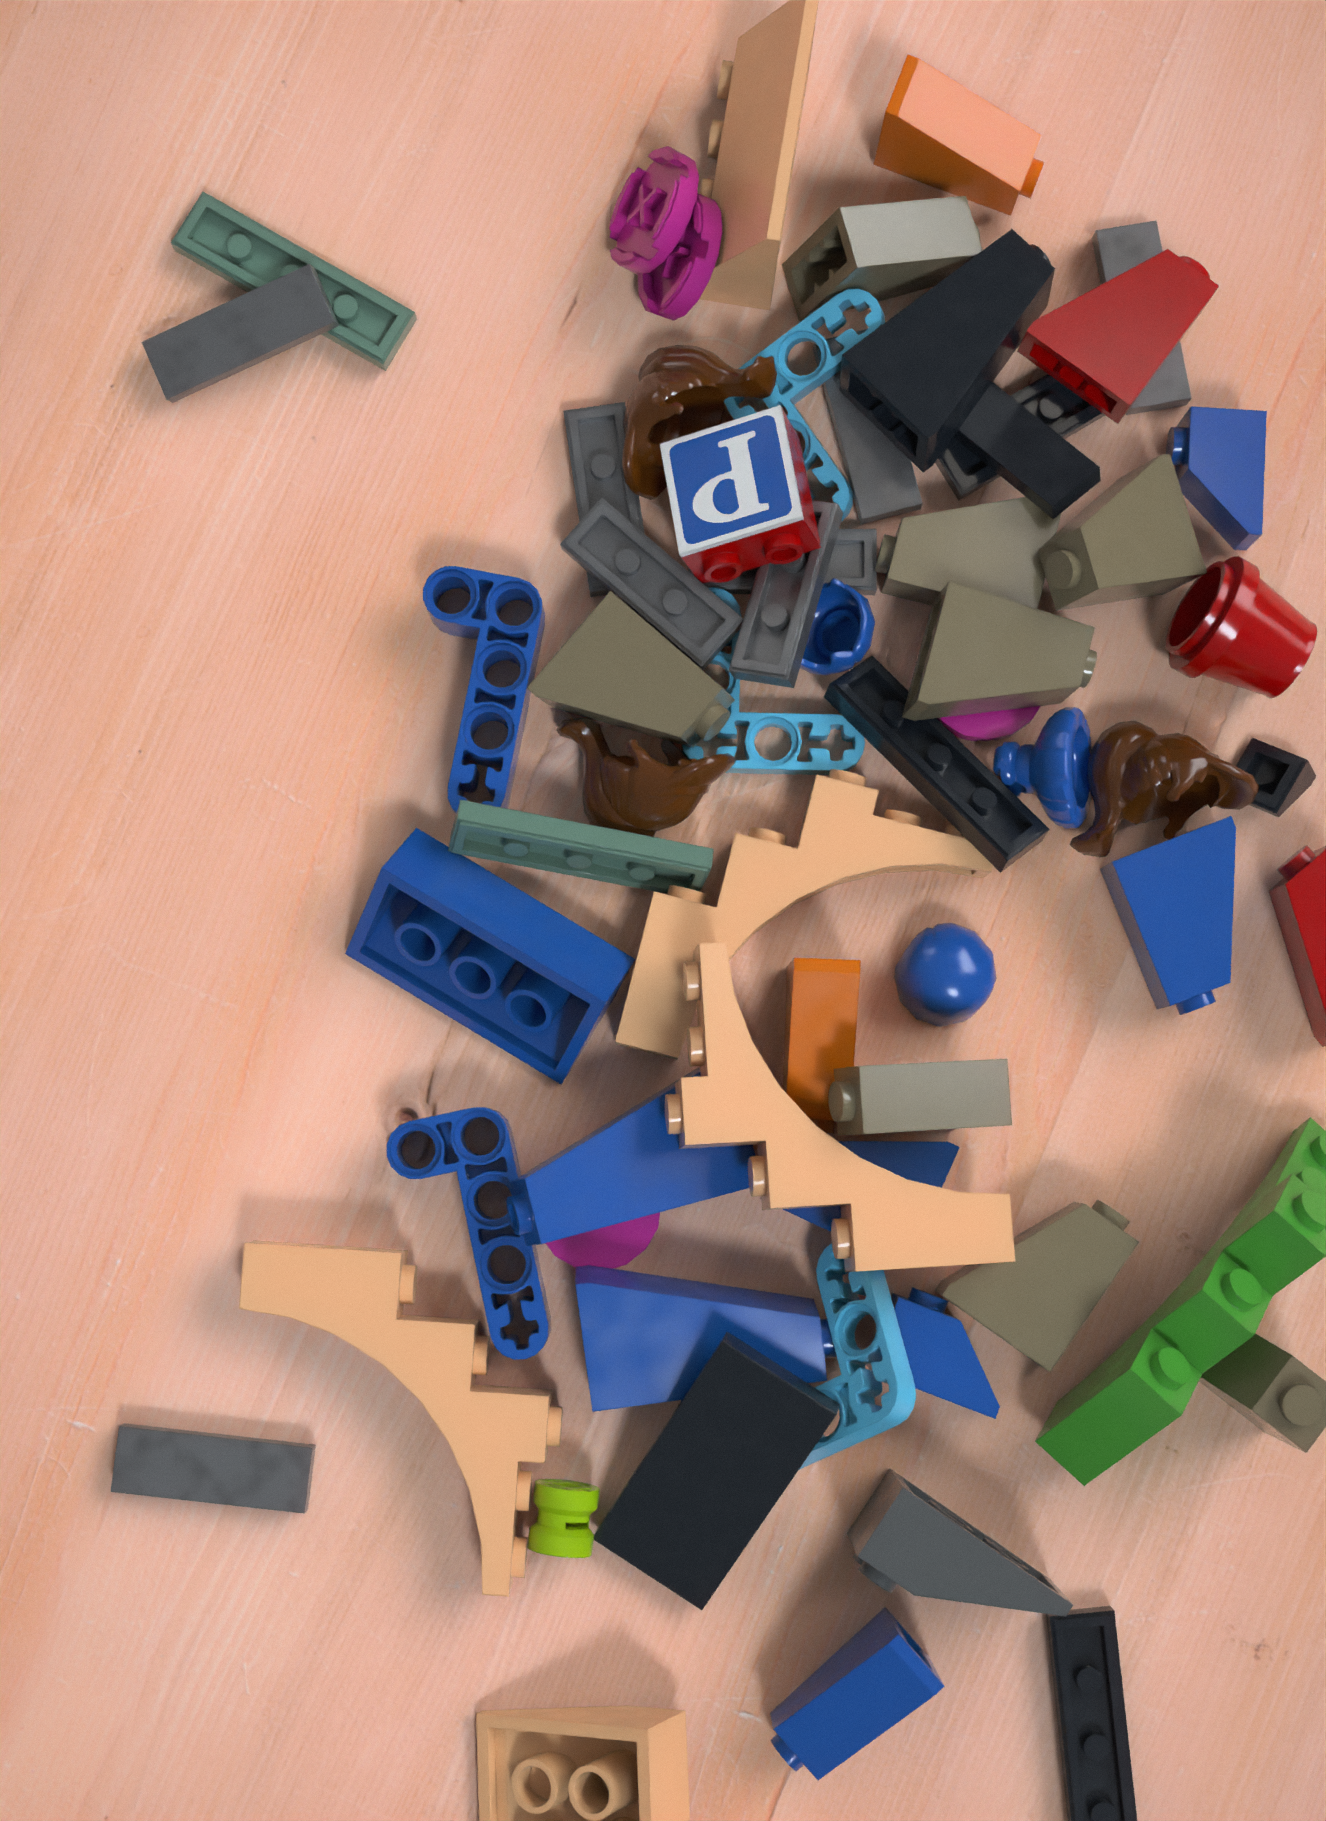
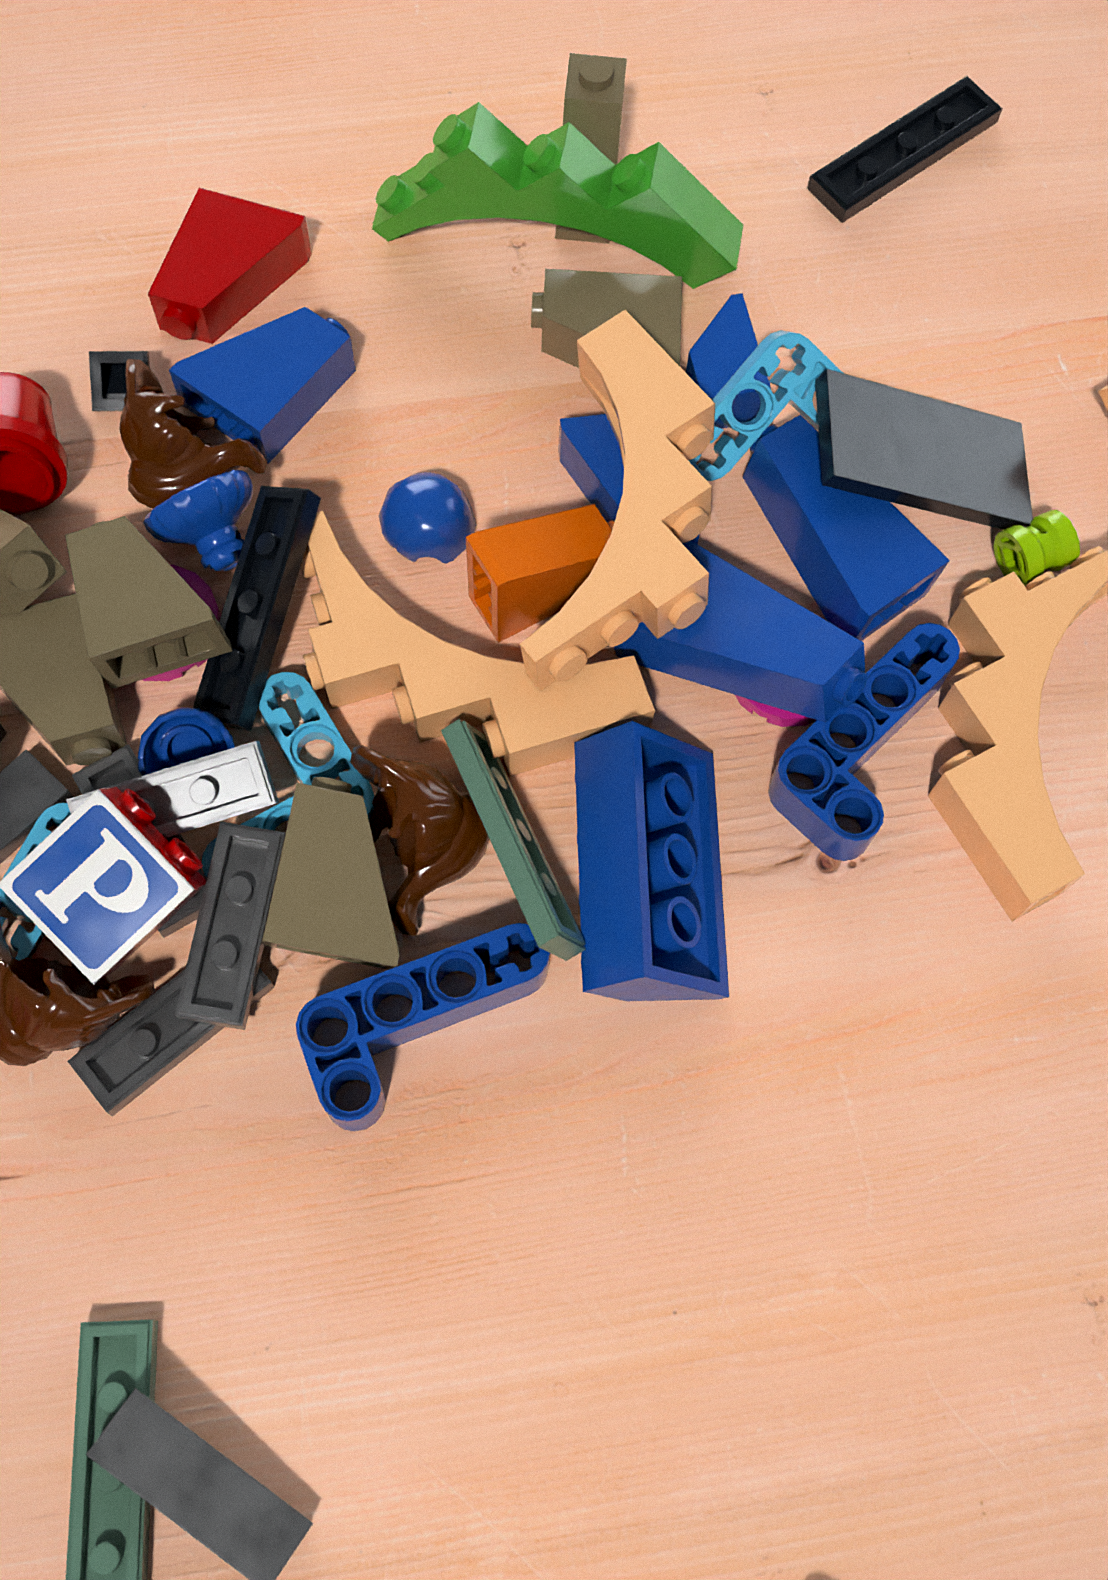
camera: 125 degrees left, 15 degrees down
(854, 1697) = (998, 284): blue slope -> none
(920, 1096) = (542, 446): dark tan slope -> none
(936, 1554) = (863, 275): dark grey slope -> none

